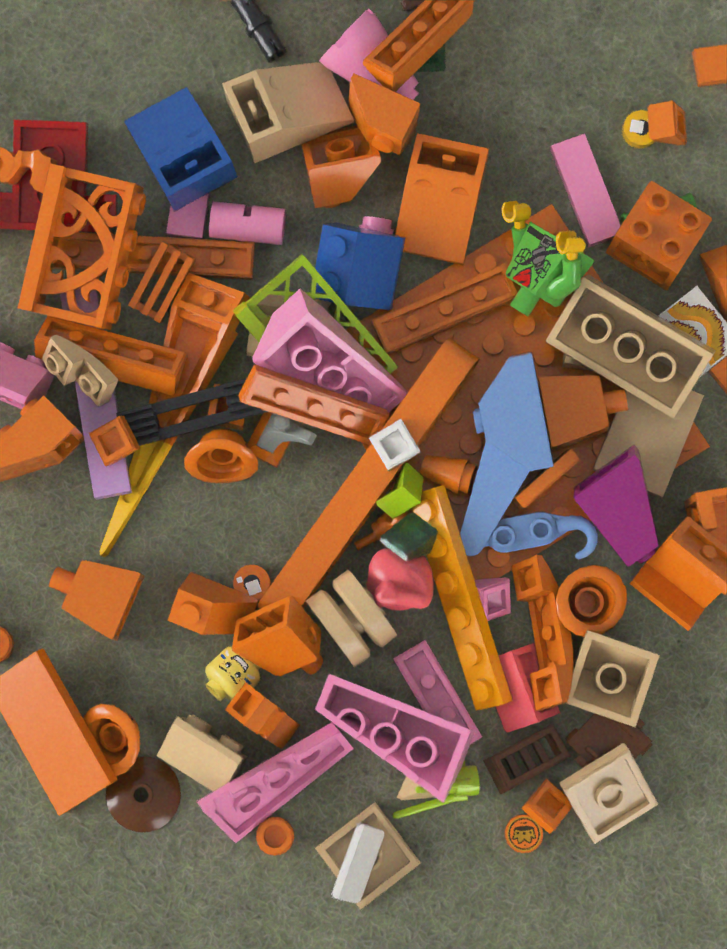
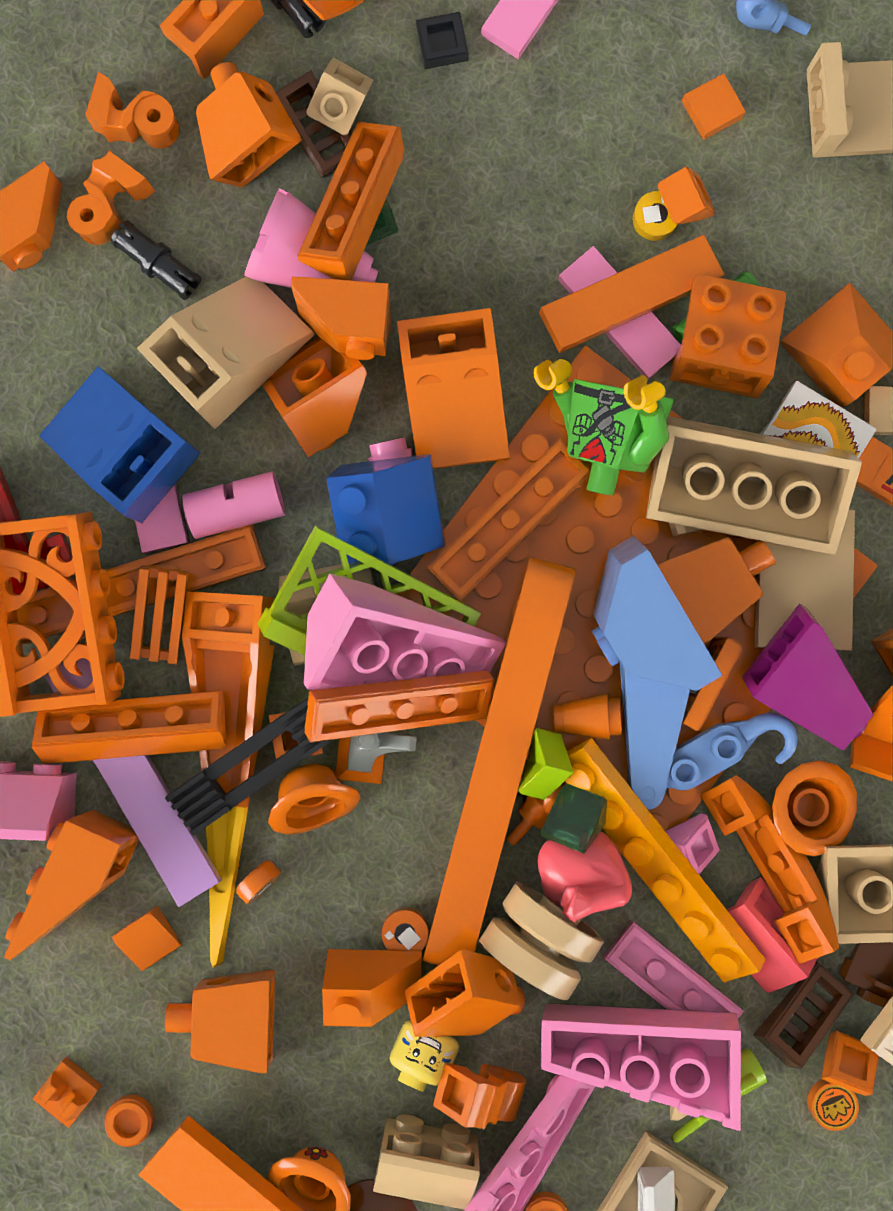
camera: 20 degrees left, 5 degrees up
(60, 515) = (147, 939): none -> orange slope
(74, 363) = (89, 758): tan slope -> none
(114, 440) = (176, 832): orange tile -> none
(158, 503) = (258, 881): none -> orange tile
(394, 445) = (516, 715): white tile -> none
(596, 177) = (628, 294): none -> orange tile

